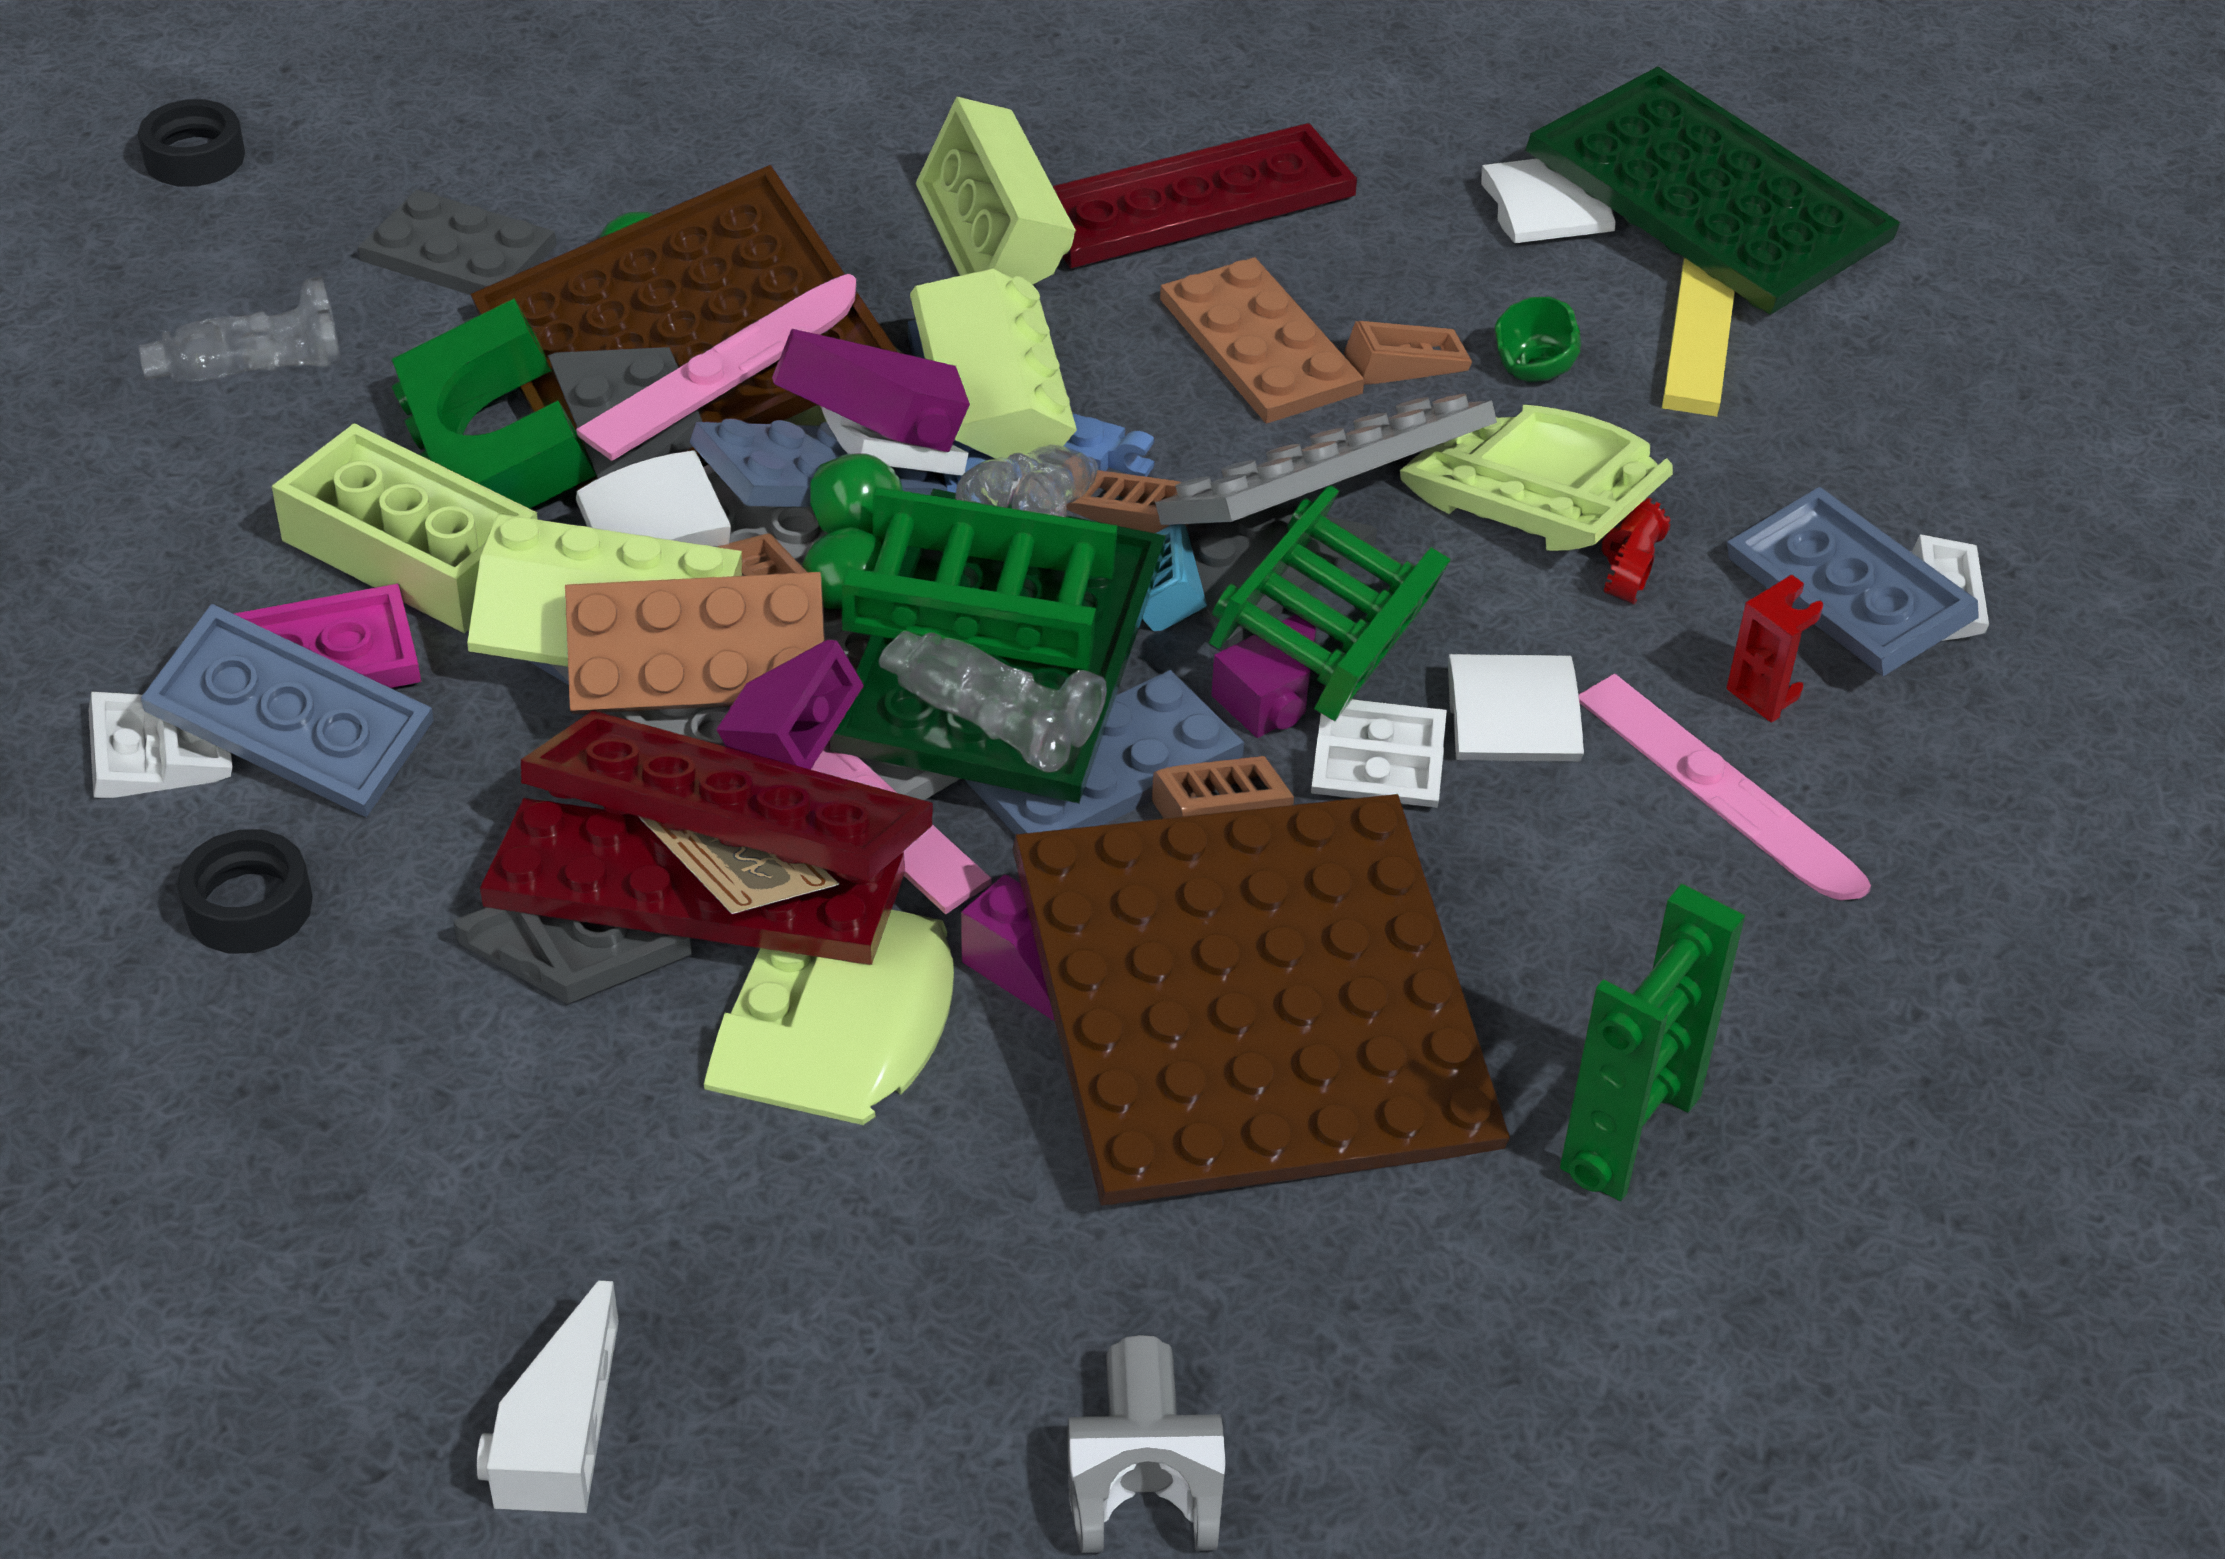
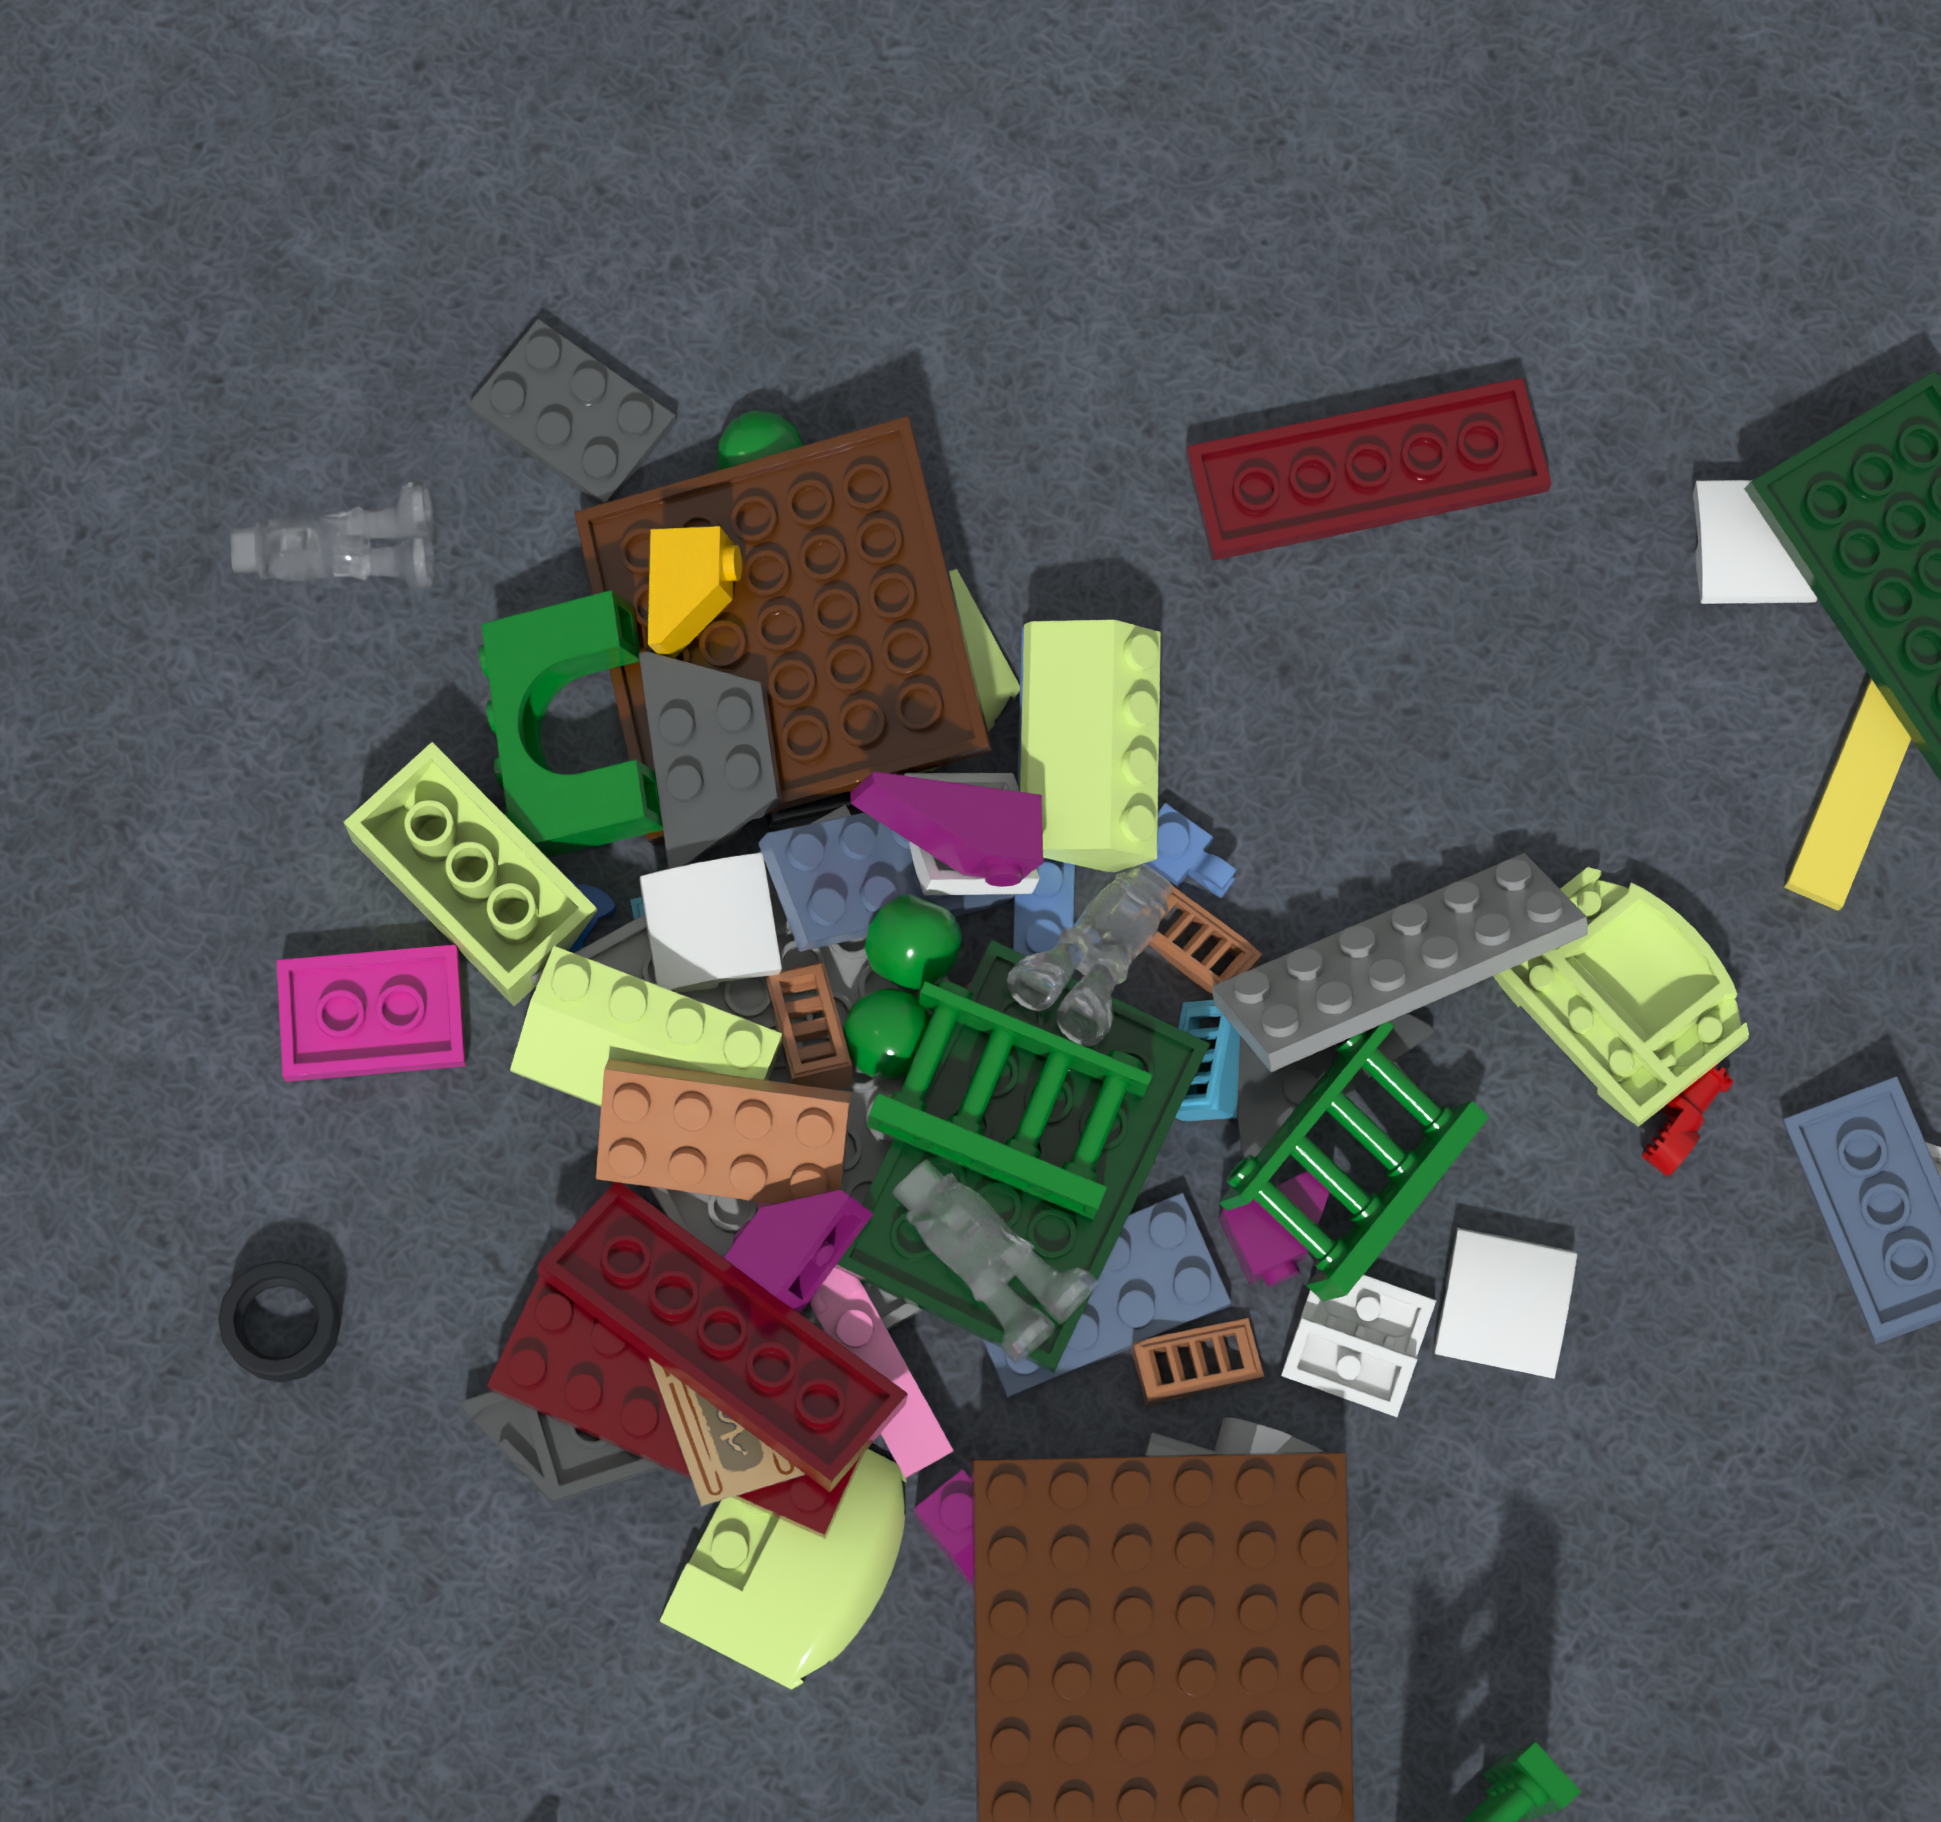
camera: 10 degrees right, 30 degrees up
(143, 753) = (216, 1098): white slope -> none
(194, 164) = (315, 238): black tyre -> none
(288, 710) = (335, 1111): sand blue plate -> none
(589, 293) = (688, 583): none -> yellow slope
(716, 370) = (807, 736): bright pink piece -> none
(993, 195) = (1145, 469): yellowish green slope -> none
(1261, 340) = (1388, 712): nougat plate -> none
(1404, 352) = (1493, 781): nougat slope -> none
(1538, 332) = (1690, 783): green hair -> none
(1725, 790) = (1679, 1436): bright pink piece -> none
(1769, 648) = (1767, 1312): red hinge -> none

